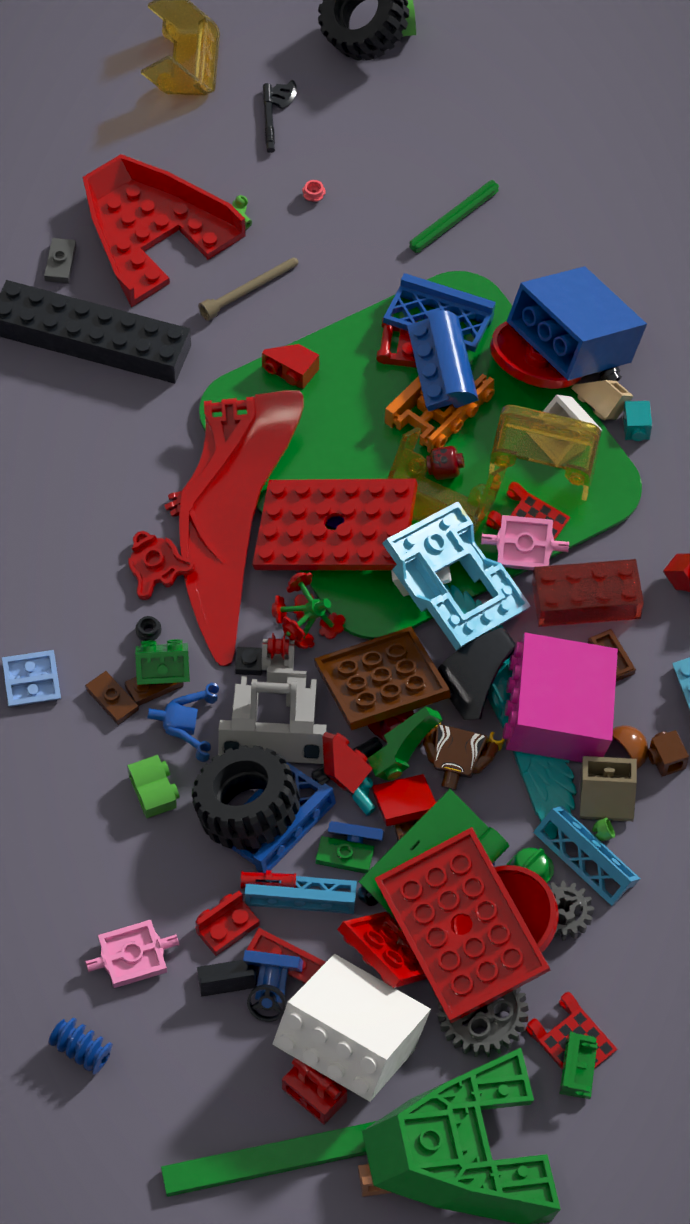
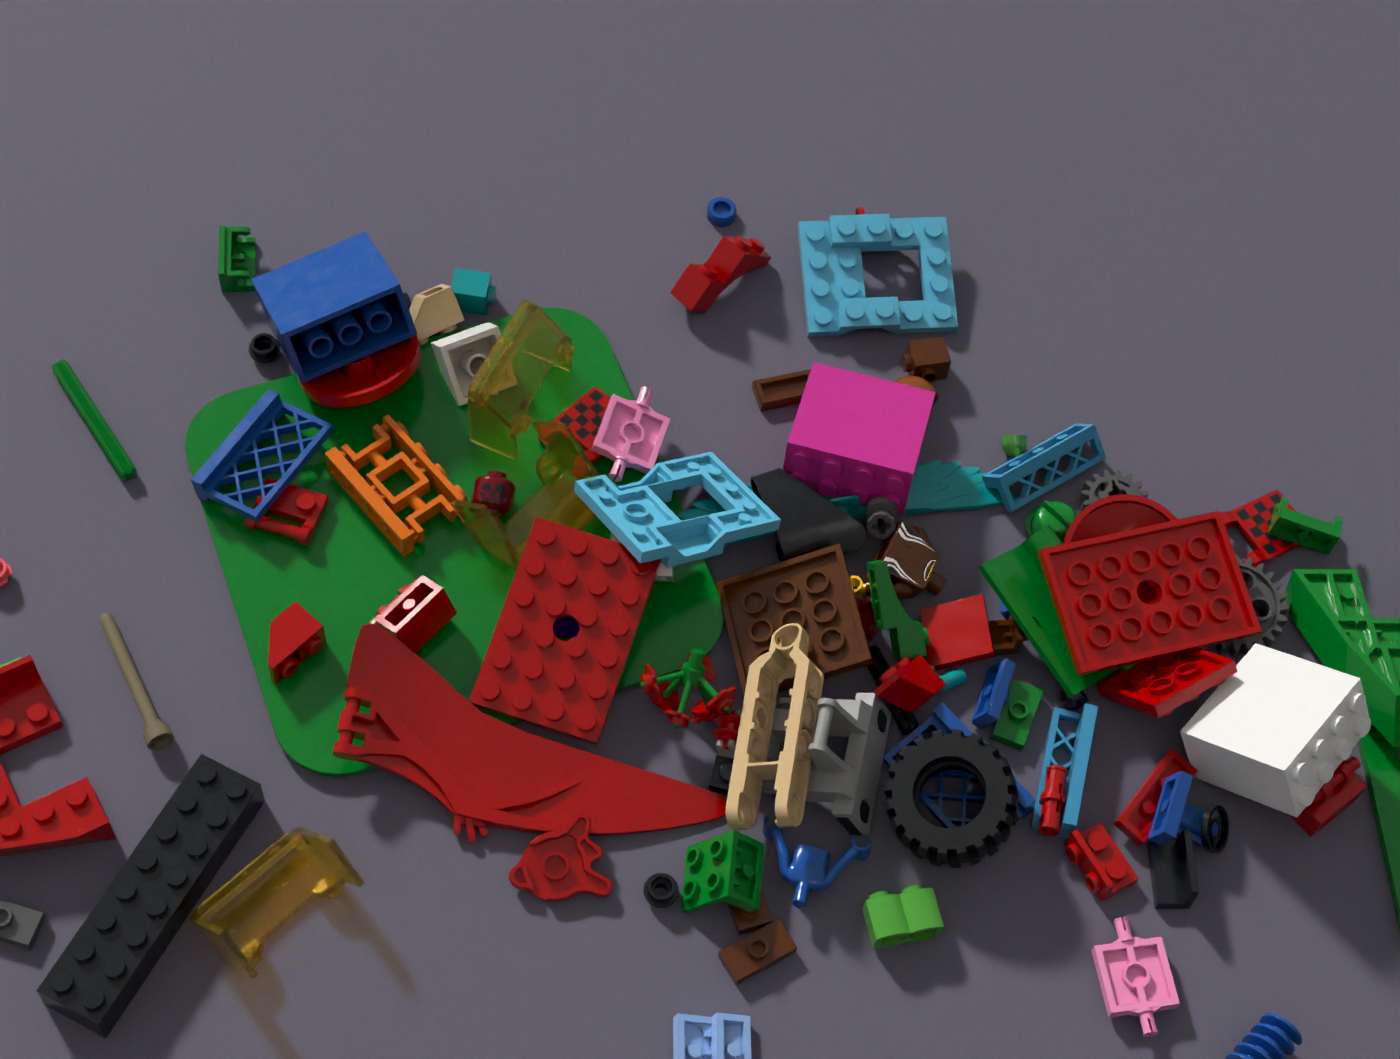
camera: 85 degrees left, 0 degrees up
(93, 390) = (270, 892): none -> clear yellow windscreen
(237, 667) = (792, 770): none -> tan piece
(326, 430) = (416, 613): none -> red brick
(442, 361) = (353, 460): blue brick -> none
(490, 725) = (881, 517): none -> dark grey bush
(587, 592) = (704, 391): clear red brick -> none
(608, 788) = (969, 425): dark tan slope -> none
(621, 266) = (236, 259): none -> green hinge

